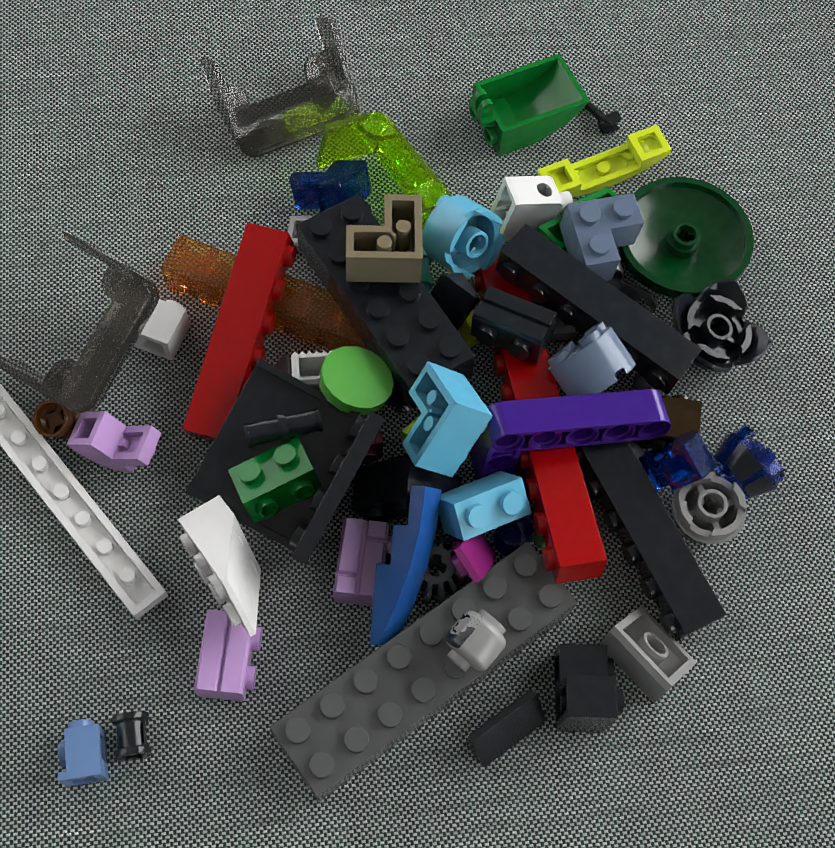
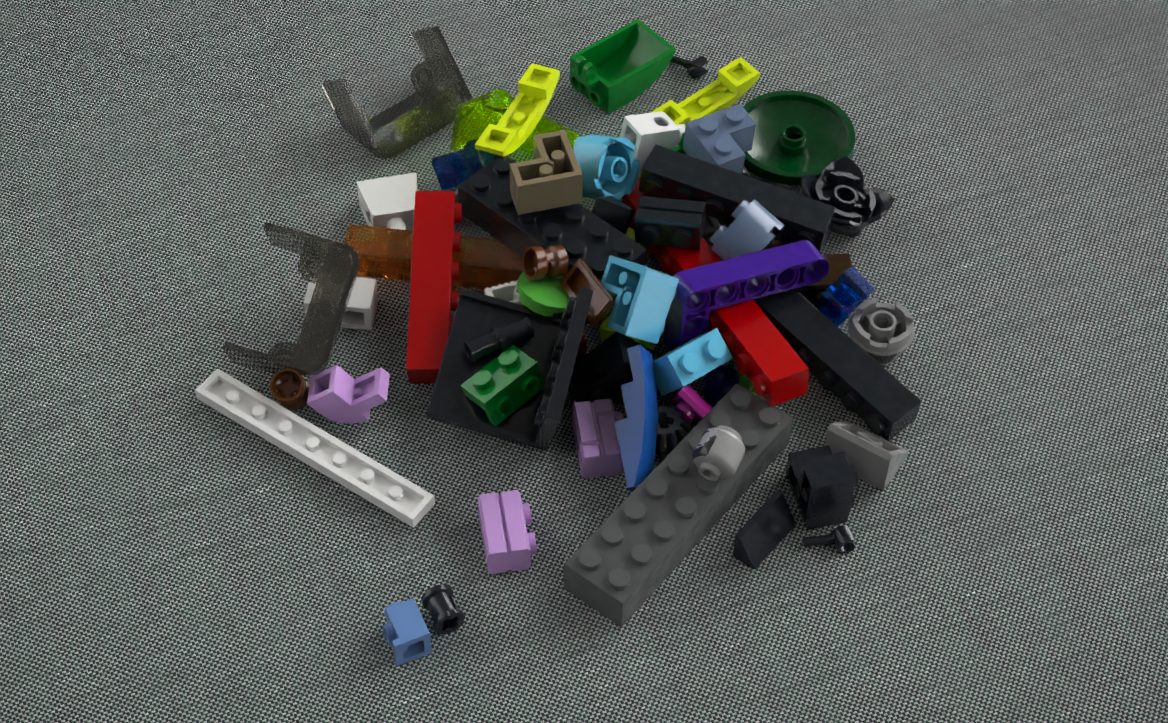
camera: 10 degrees left, 15 degrees down
(224, 560) = (477, 450): white slope -> none
(230, 209) = (389, 201): none -> white torso
(357, 348) = (545, 262): none -> reddish brown wheel
(392, 397) = (601, 300): none -> reddish brown tile
(393, 152) = (523, 114): none -> neon yellow slope
(588, 757) = (840, 536): none -> black hand
(748, 463) = (905, 286): clear blue cone -> none

